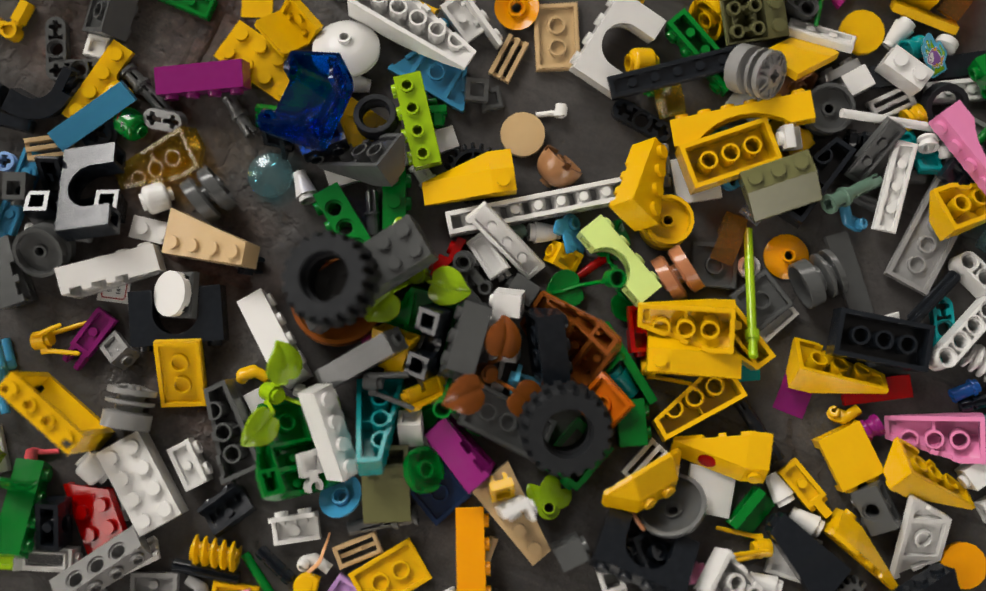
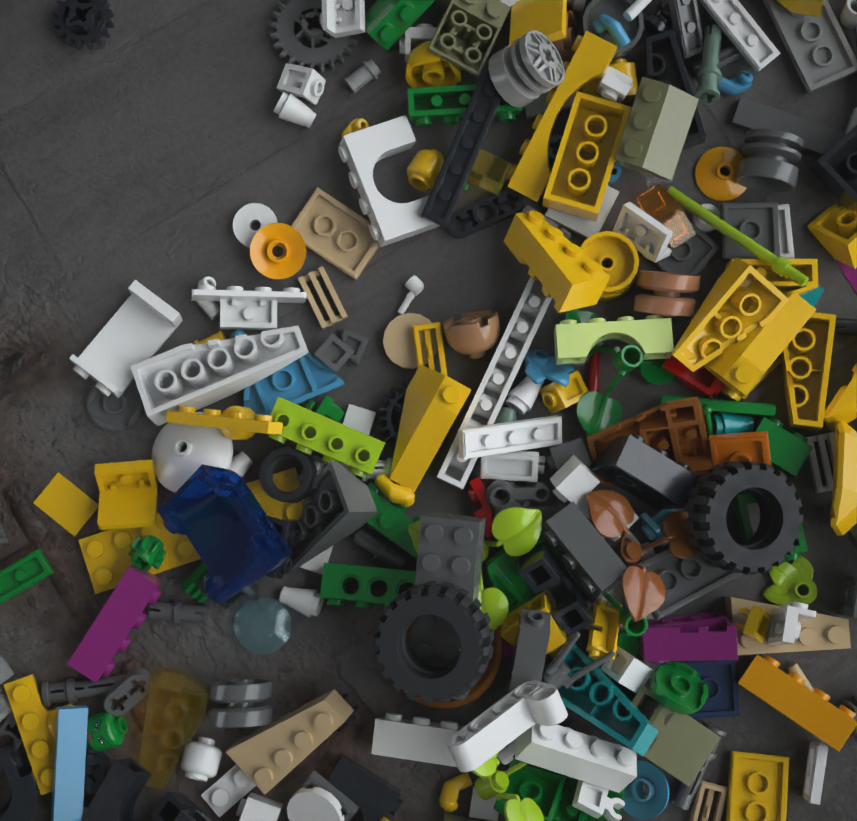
camera: 60 degrees left, 0 degrees up
(261, 65) = (147, 552): none -> green gear
(312, 365) = (504, 722): none -> white beam
(384, 58) = (234, 422): none -> yellow plate
(415, 193) = (394, 492): none -> yellow arm
(538, 137) = (426, 327): none -> yellow tile
(706, 230) = (644, 232): none -> white bracket
(825, 114) = (614, 28): none -> dark azure arm

